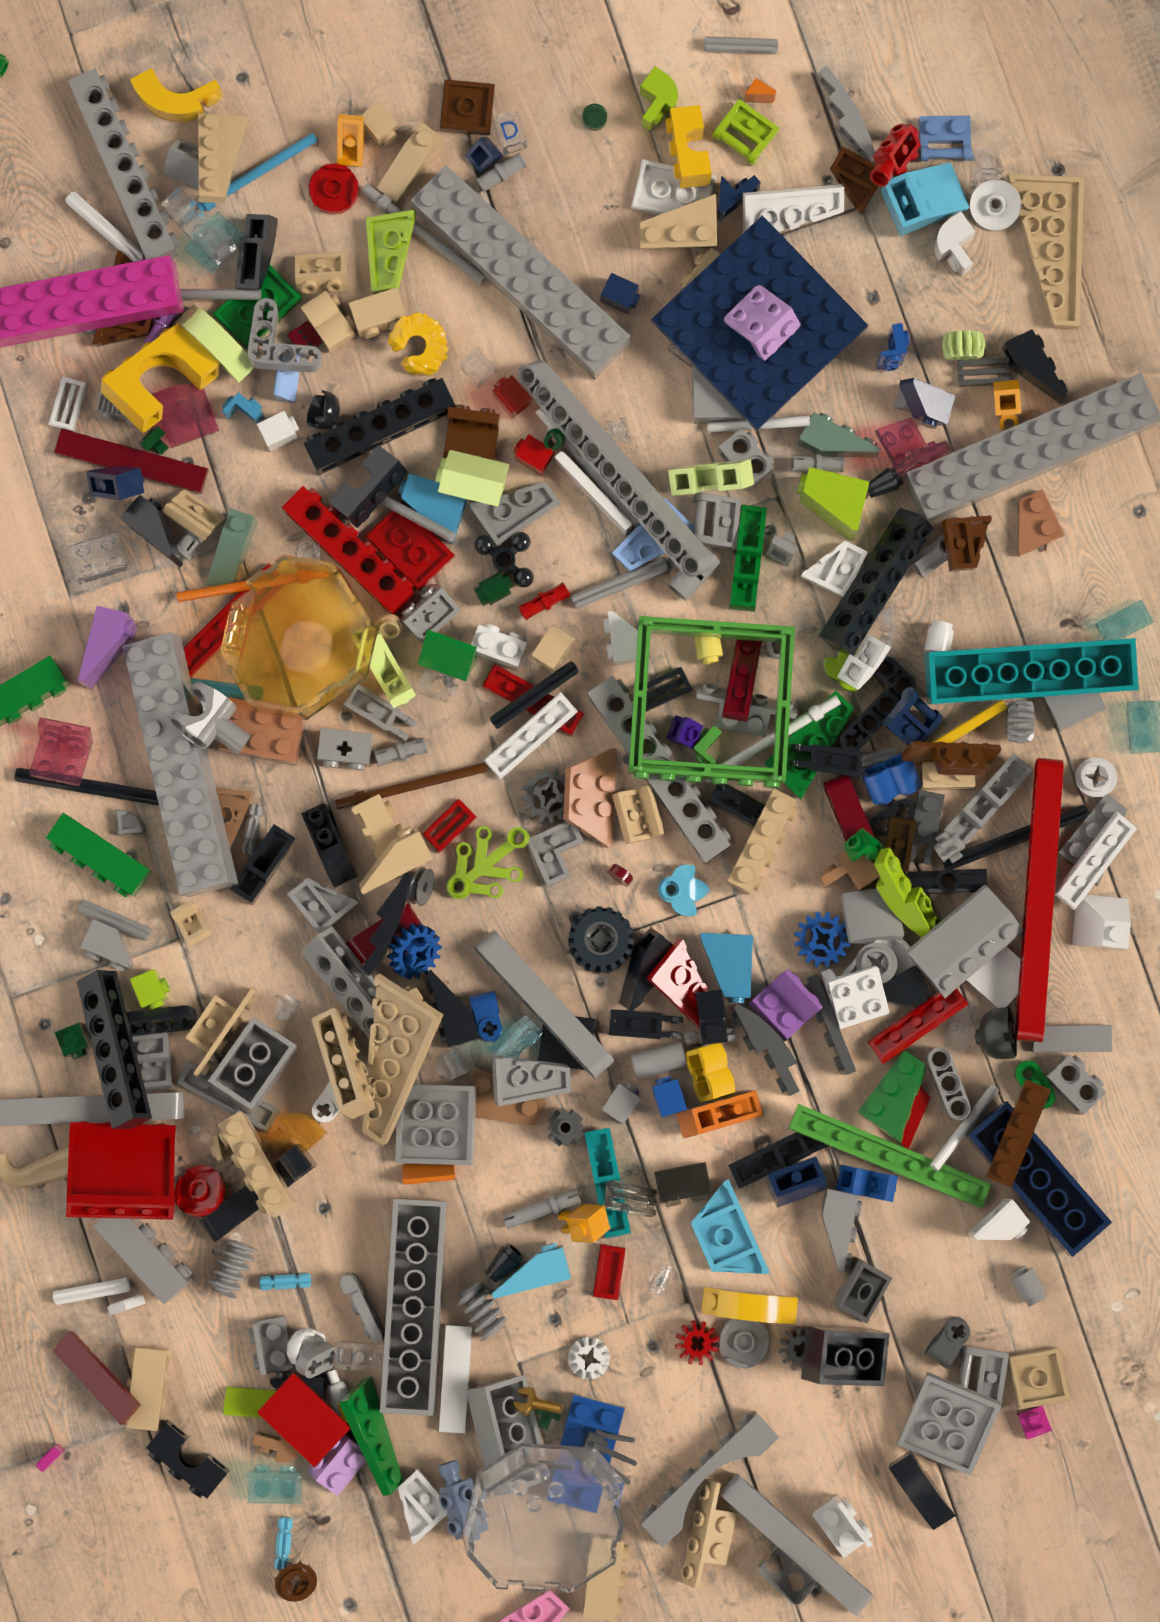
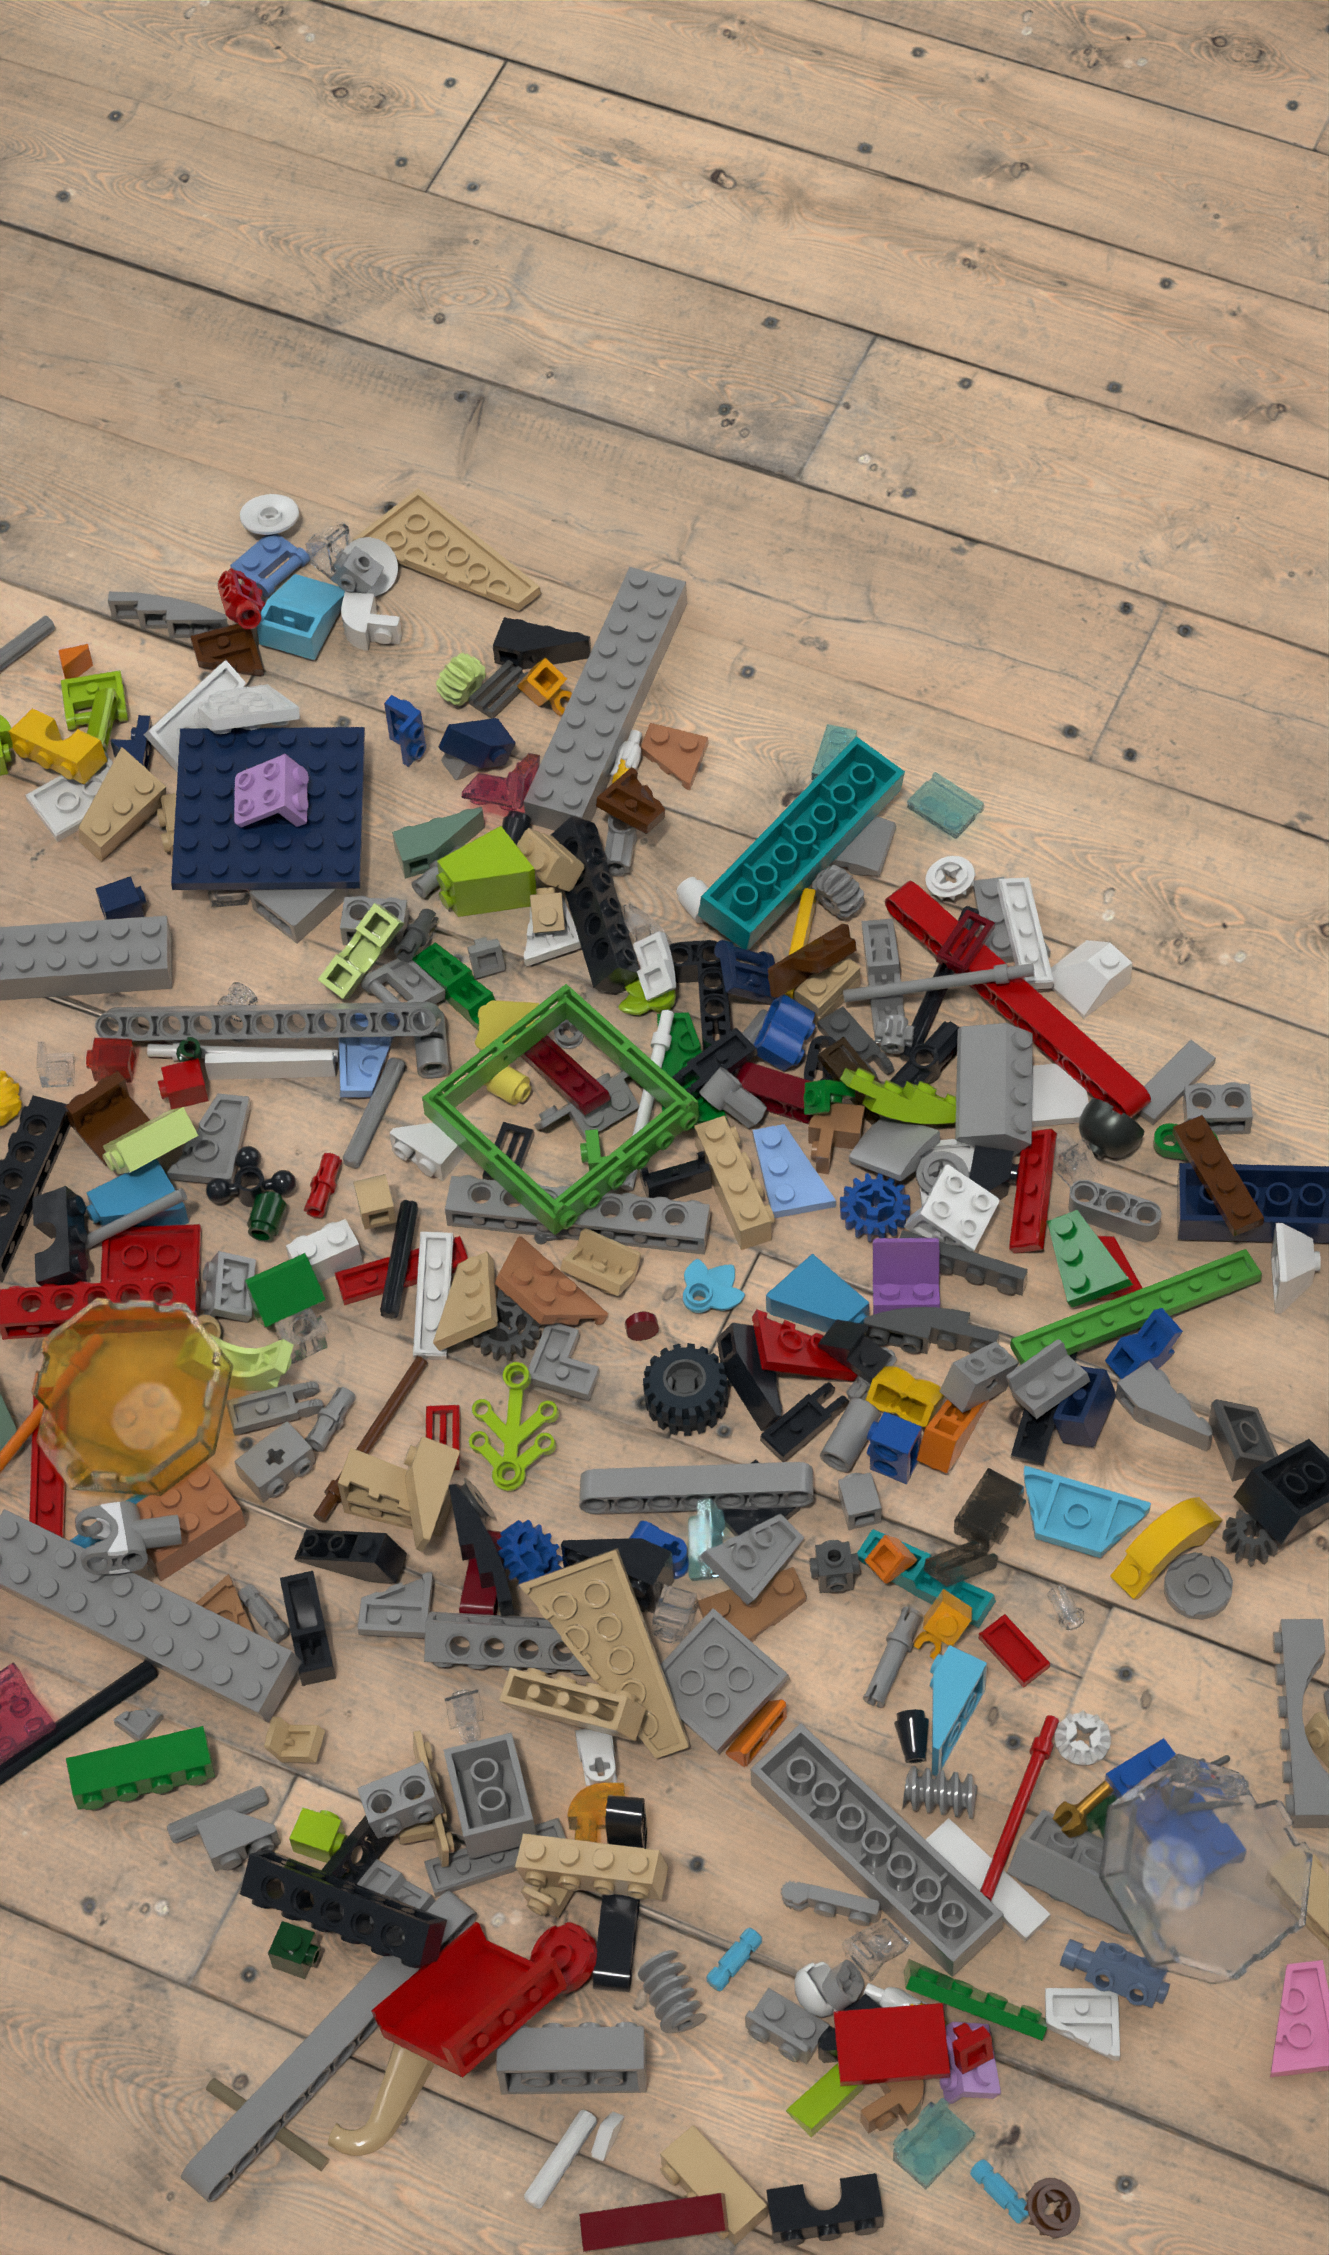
camera: 45 degrees left, 25 degrees down
(202, 1019) = (398, 1791): none -> light grey brick
(338, 1466) = (971, 2047): none -> red tile
(542, 764) = (470, 1302): none -> tan wing
(559, 1342) = (1040, 1751): none -> red bar
(596, 1157) = (890, 1558): none -> orange slope
(684, 731) = (565, 1163): dark purple bracket -> none
(706, 1342) = (1146, 1625): red gear -> none
(733, 153) = (103, 715): none -> lime slope
(743, 607) = (498, 1017): none -> light yellow sticker
(758, 493) = (416, 935): none -> dark grey pin
(759, 1105) = (978, 1376): none -> light grey brick
(783, 422) = (366, 873): white bar -> none
(788, 1150) = (1046, 1379): none -> light grey bracket
(800, 865) = (788, 1175): none -> light blue wing
(815, 238) = (246, 709): none -> white plate
(815, 787) = (727, 1093): none -> light grey piece
(844, 559) = (547, 910): none -> tan bracket
(878, 528) = (550, 859): none -> tan brick
(964, 1127) = (1170, 1229): white bar -> none
(979, 206) = (356, 571): none -> light grey brick
(983, 96) = (269, 514): none -> white dish
(1000, 501) = (627, 755): none -> white piece
(1041, 880) = (1000, 974): none -> light grey bar
(1069, 833) = (954, 961): none -> dark red tile

